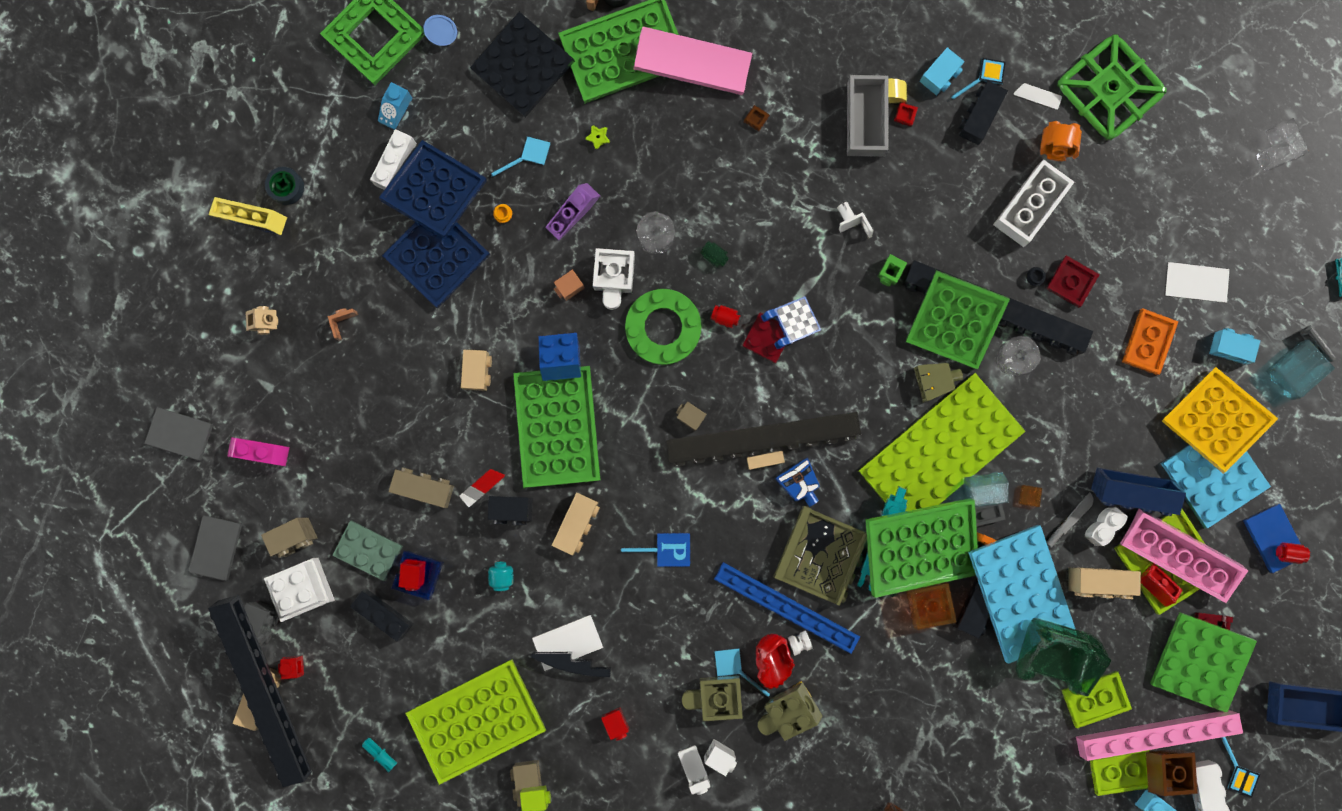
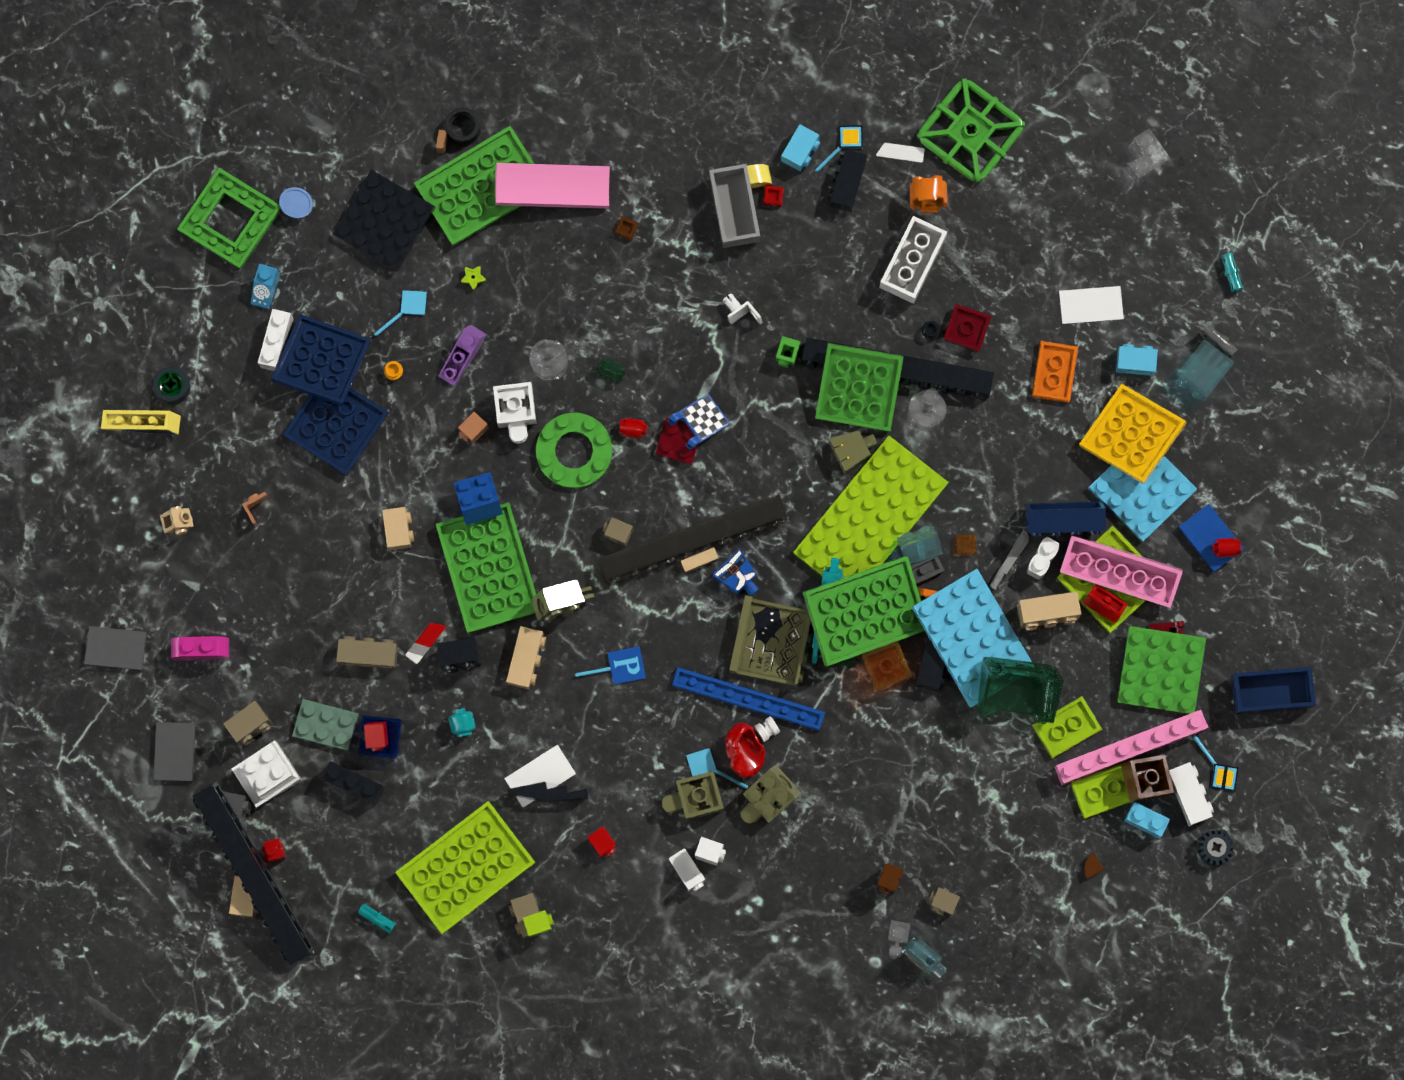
camera: 10 degrees left, 5 degrees down
(620, 475) = (560, 600): none -> brick

